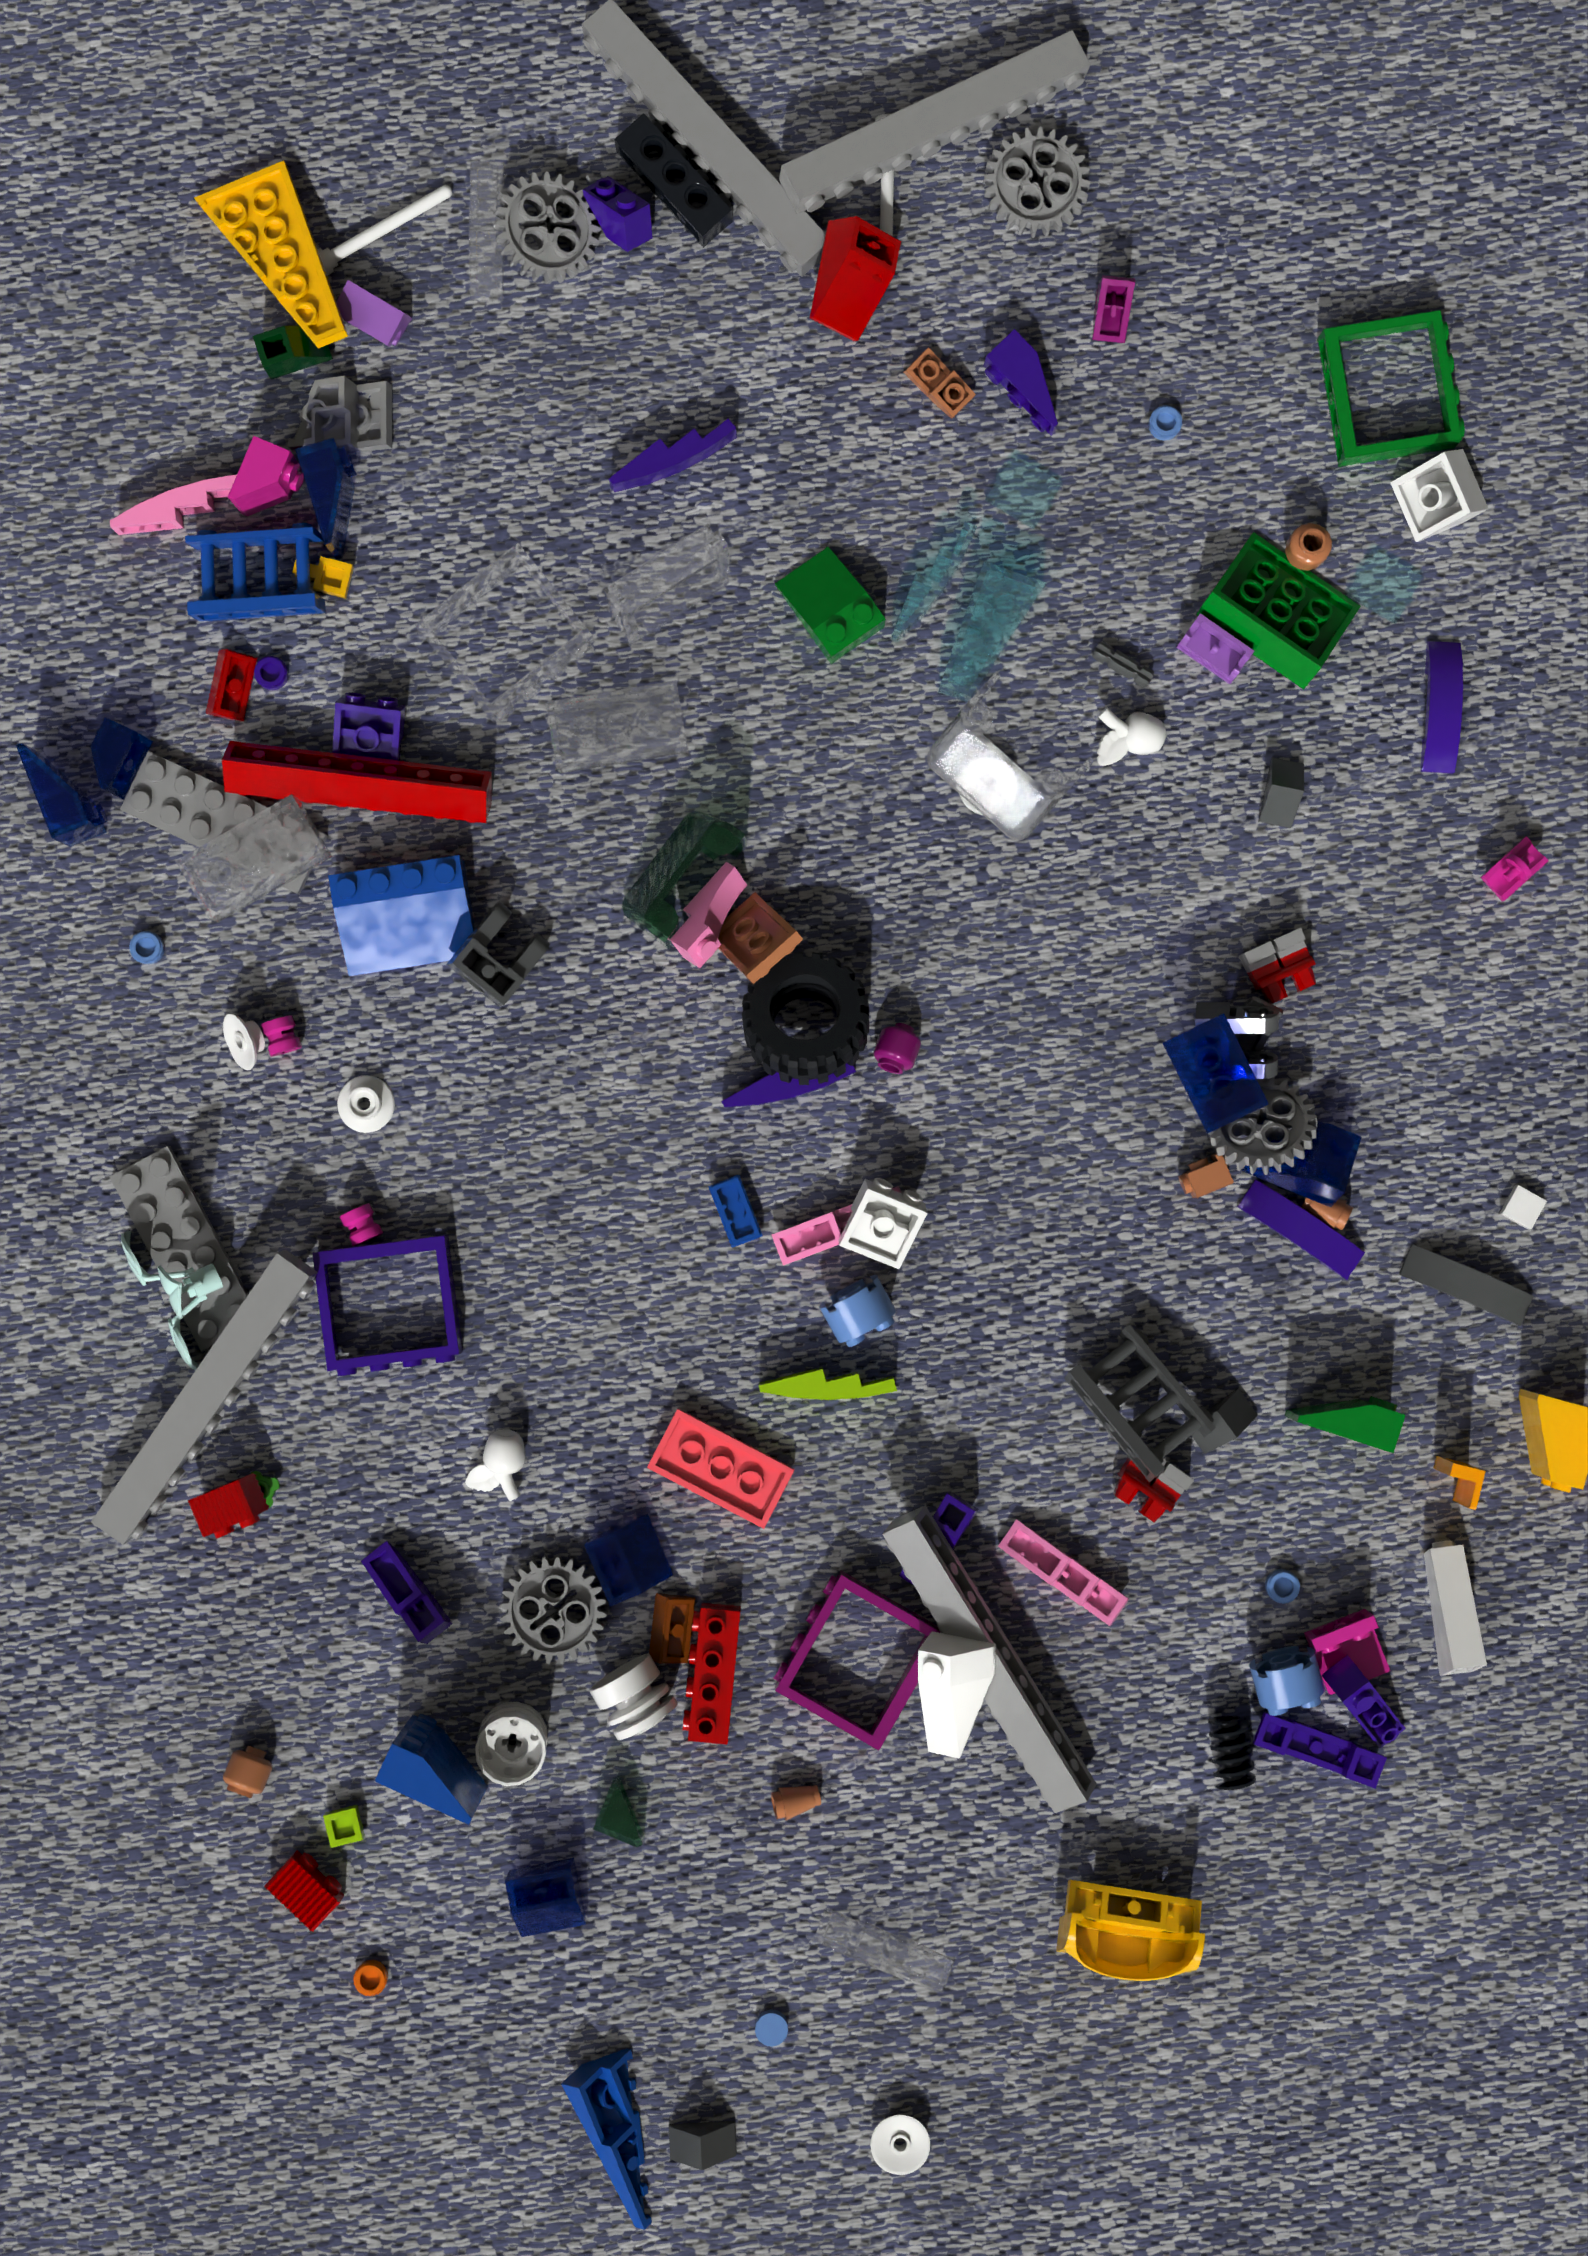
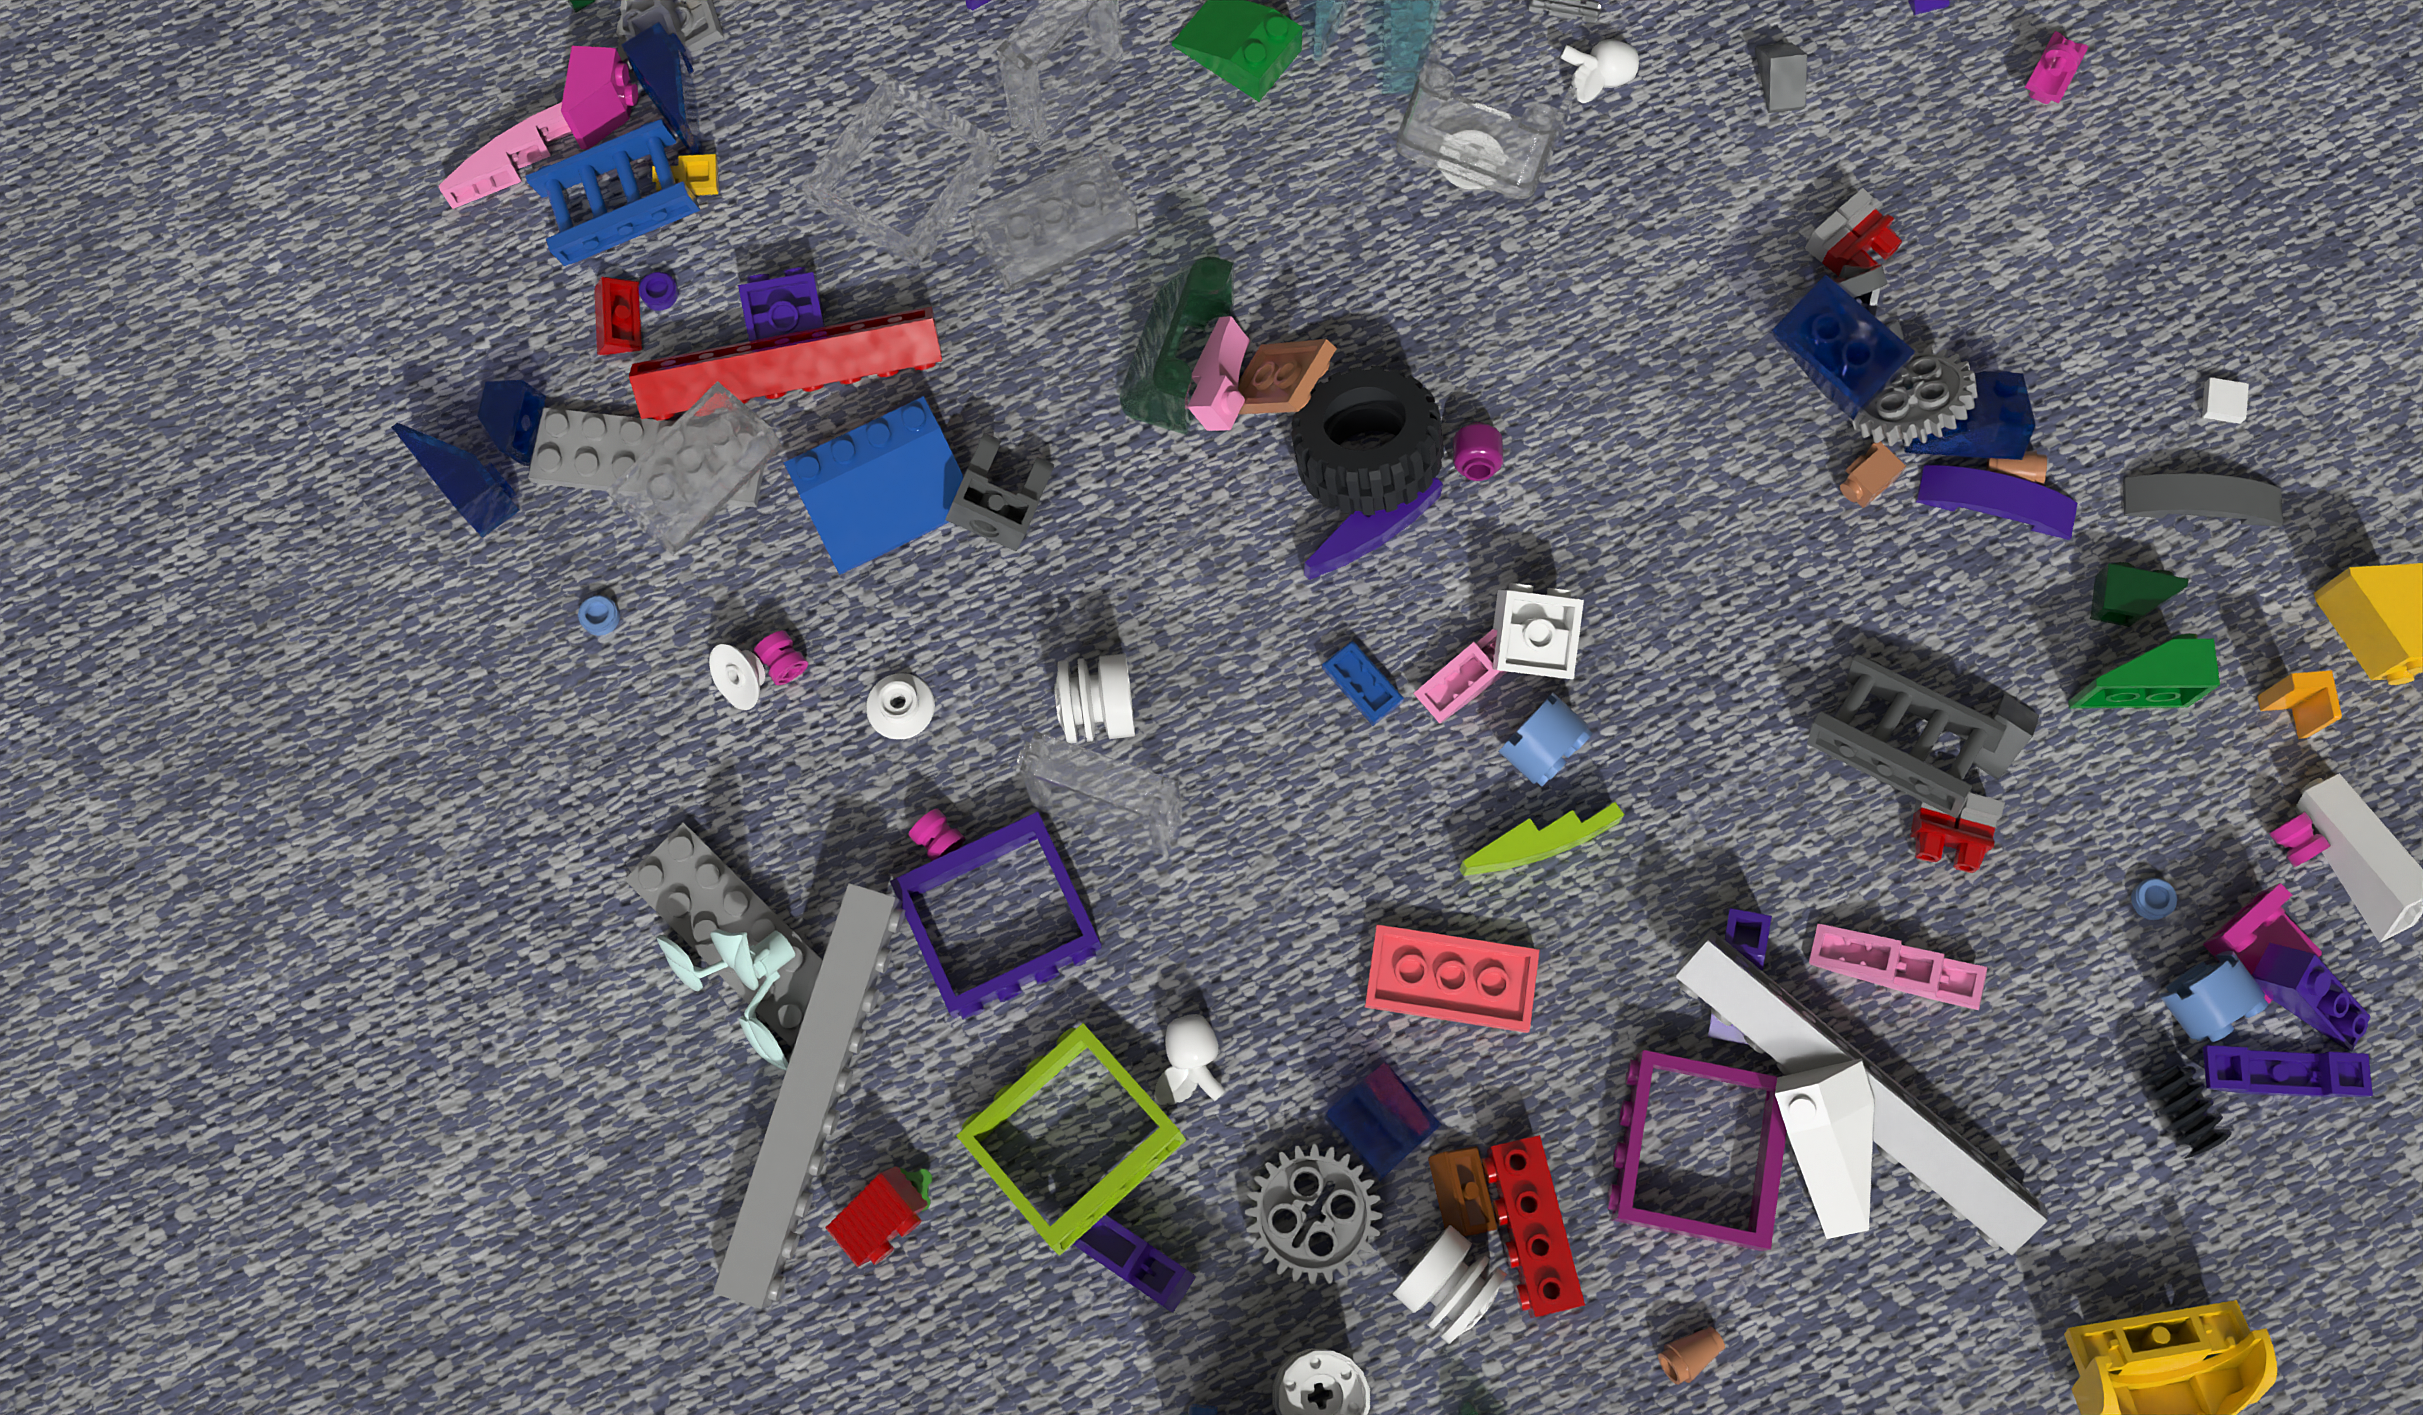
camera: 15 degrees left, 15 degrees down
(463, 1520) = (1116, 1183): none -> lime window
(491, 1248) = (1101, 793): none -> clear window
(517, 1159) = (1095, 698): none -> white wheel
(1370, 1346) = (2129, 594): none -> dark green slope
(1412, 1577) = (2298, 837): none -> dark pink wheel

